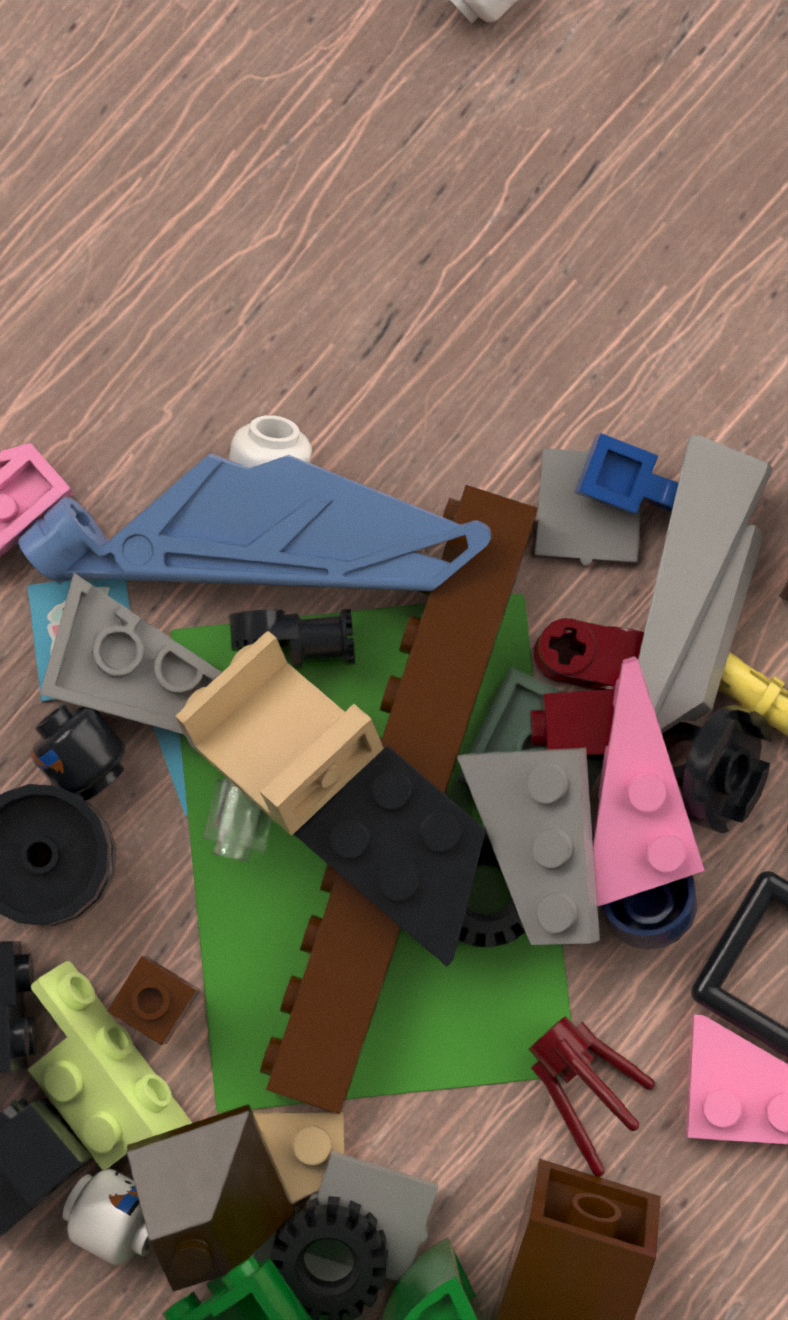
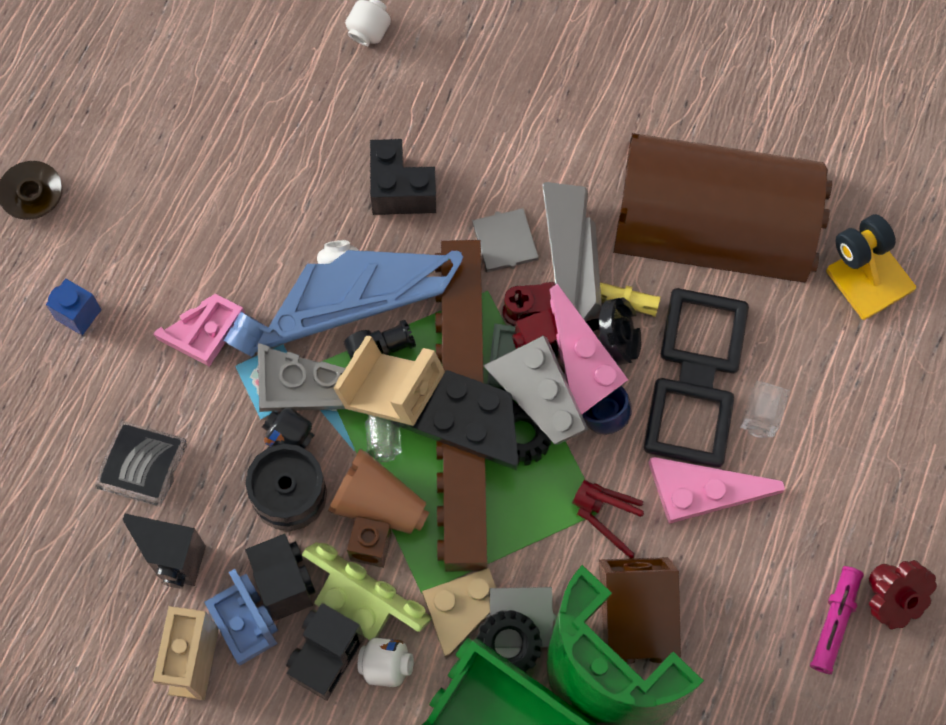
camera: 20 degrees left, 15 degrees down
(192, 927) = (378, 495): none -> nougat cone
(208, 1195) = (432, 623): dark brown slope -> none
(418, 340) = (396, 187): none -> black brick
(623, 476) = (516, 218): blue plate -> none

